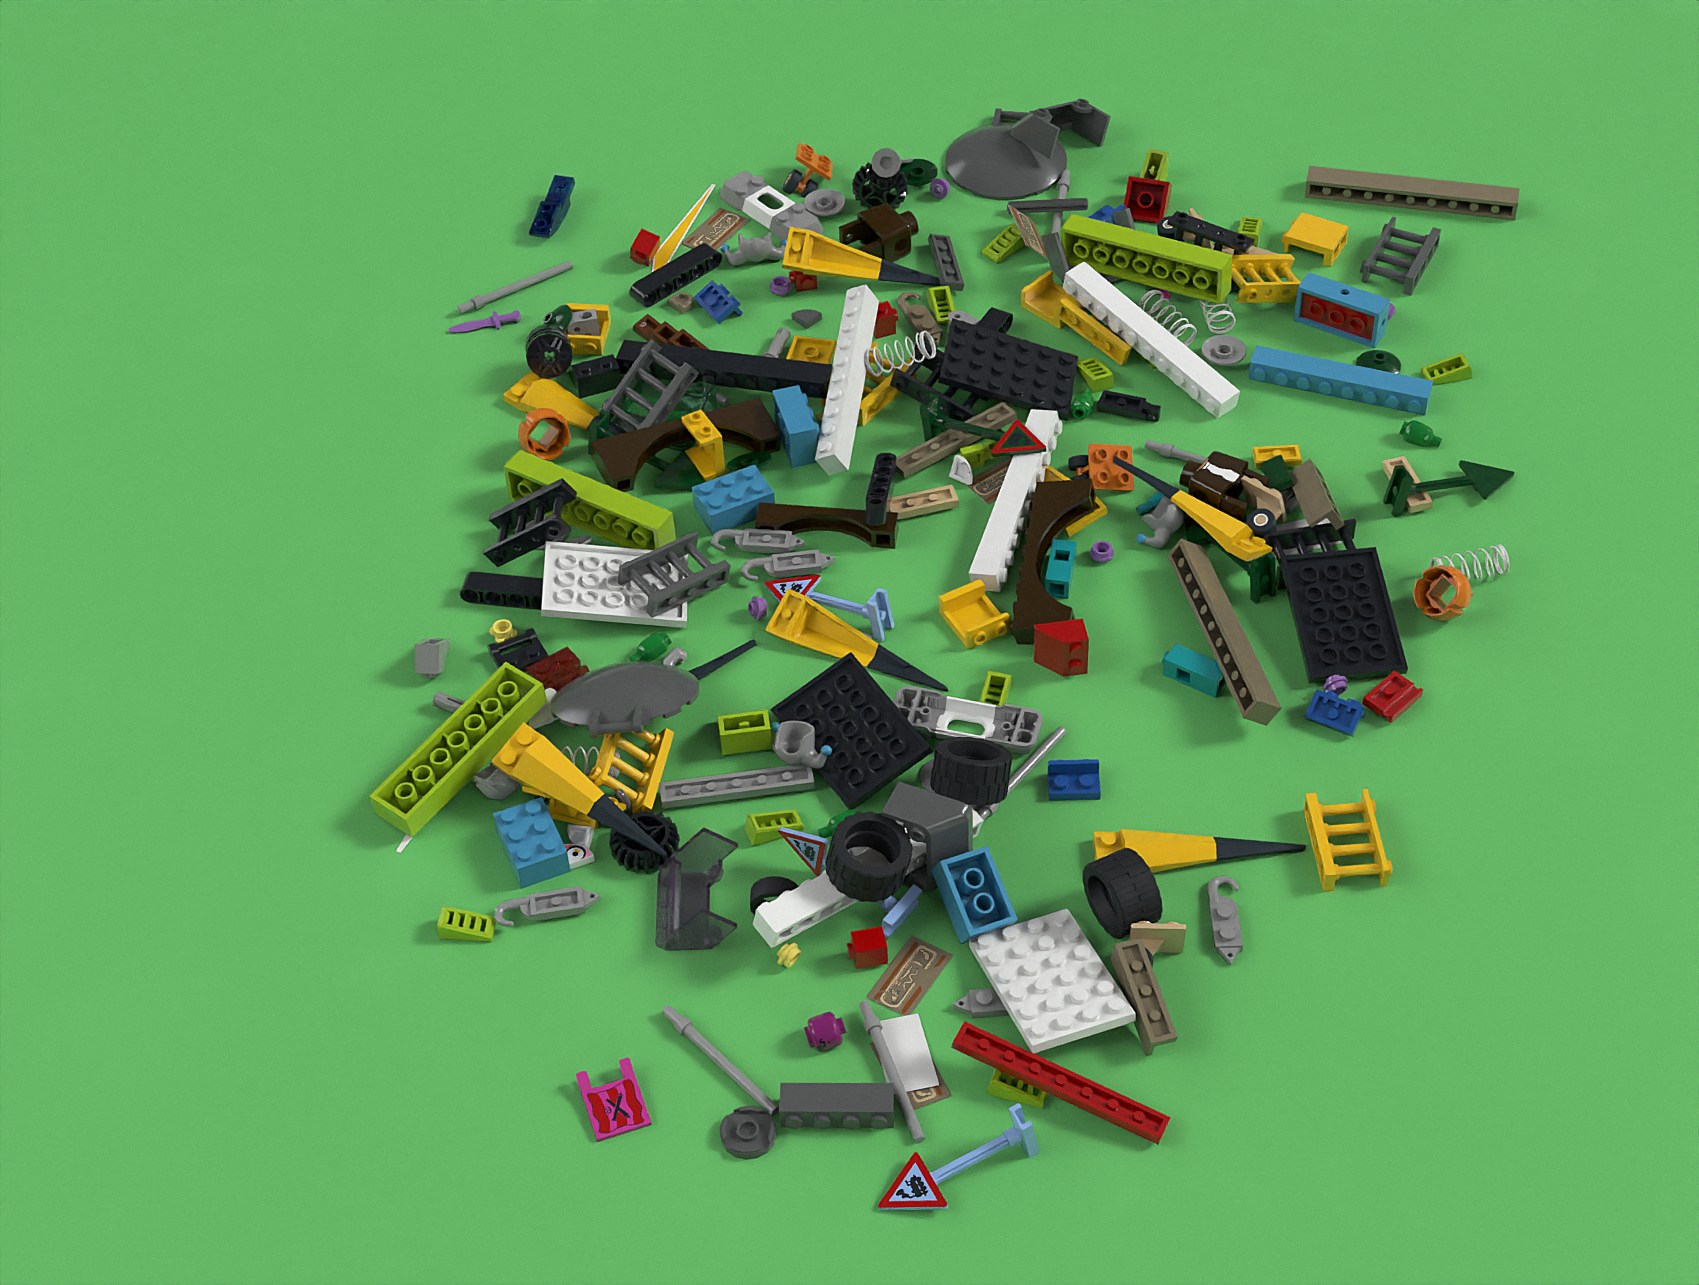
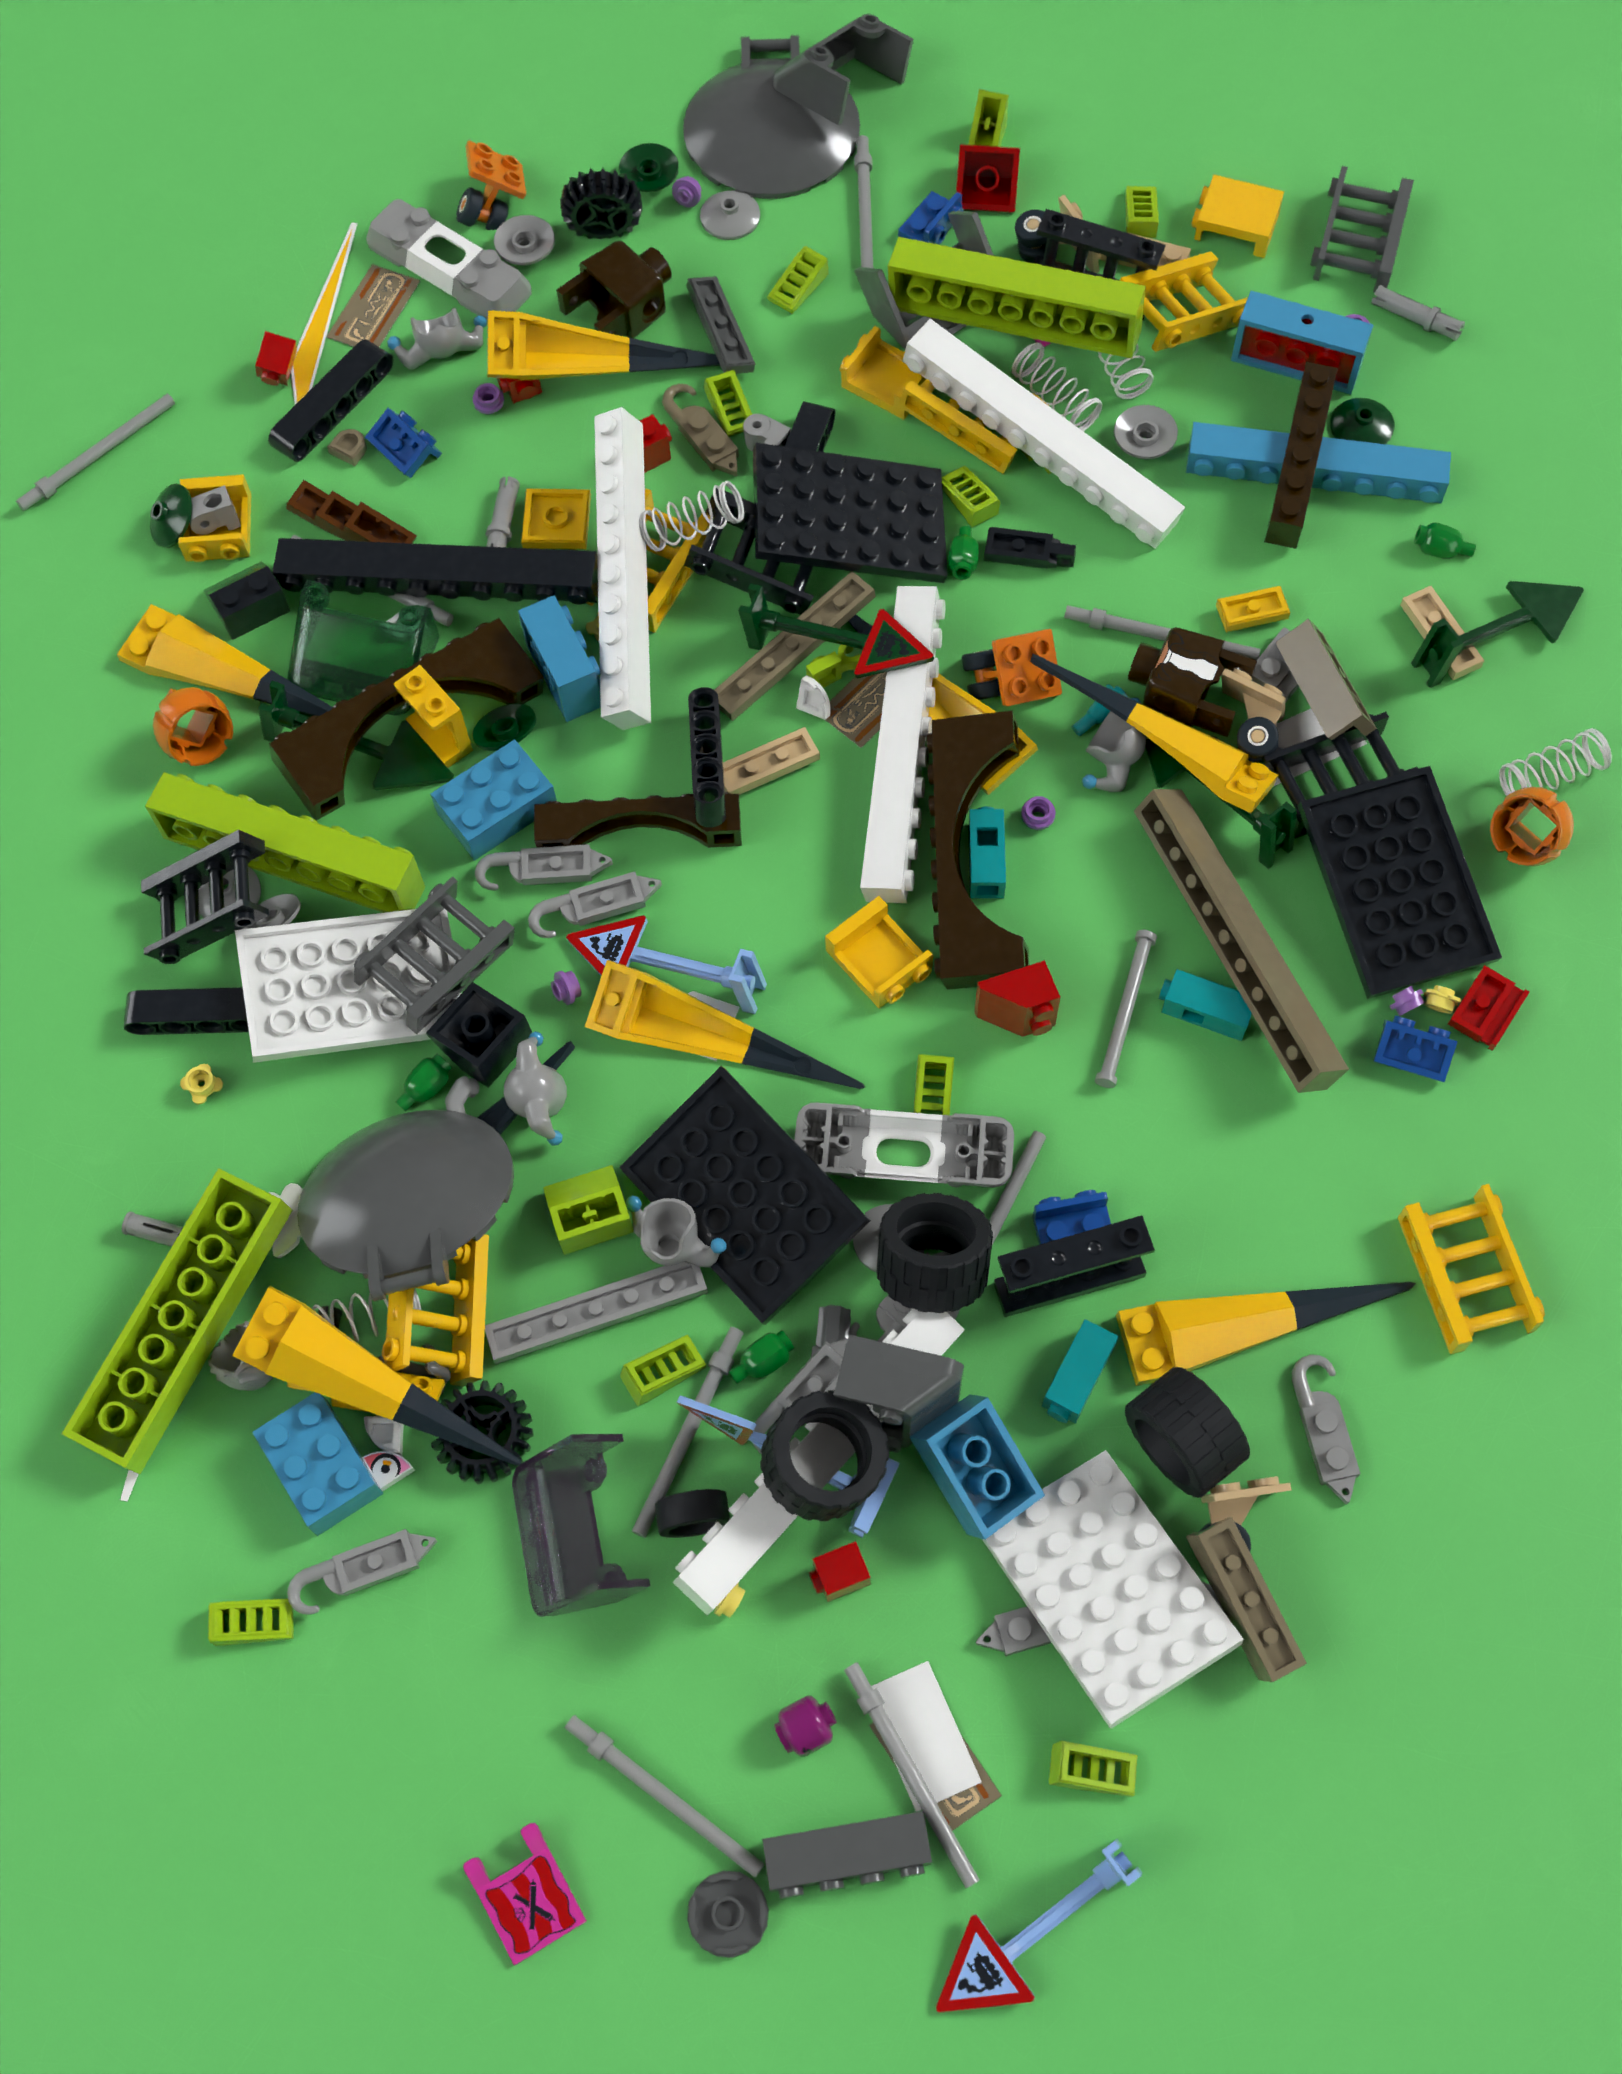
camera: 10 degrees left, 20 degrees up
(431, 656) = (103, 1147): light grey arch -> none
(494, 320) = (75, 518): medium lavender sword -> none
(521, 657) = (239, 1127): black plate -> none
(548, 339) = (170, 575): black wheel -> none
(554, 208) = (127, 302): clear blue slope -> none
(557, 669) = (289, 1136): clear red plate -> none
(670, 394) = (368, 634): dark grey fence -> none
(695, 623) = (480, 1033): none -> black slope
(724, 657) = (535, 1090): none -> light grey piece
(806, 317) = (537, 450): dark grey tile -> none
(810, 828) = (719, 1365): none -> light grey bar
(887, 162) = (608, 172): light grey piece -> none
(909, 976) = (904, 1598): dark tan sticker -> none
(967, 205) = (730, 215): none -> light grey dish
(1028, 231) = (831, 257): sticker -> none
(1050, 205) = (848, 205): dark grey axle -> none
(1059, 861) = (1079, 1372): none -> teal brick
(1061, 1082) = (1156, 1766): red plate -> none
(1065, 811) = (1073, 1266): none -> black fence
(1115, 704) = (1107, 1077): none -> light grey bar
(1278, 473) = (1262, 645): dark green tile -> none
(1319, 384) = (1301, 455): none -> dark brown arch
(1359, 687) = (1441, 999): none -> light yellow plate
(1412, 193) = (1358, 116): dark tan brick -> none
(1438, 310) = (1428, 317): none -> light grey pin
(1457, 364) = (1475, 405): lime slope -> none

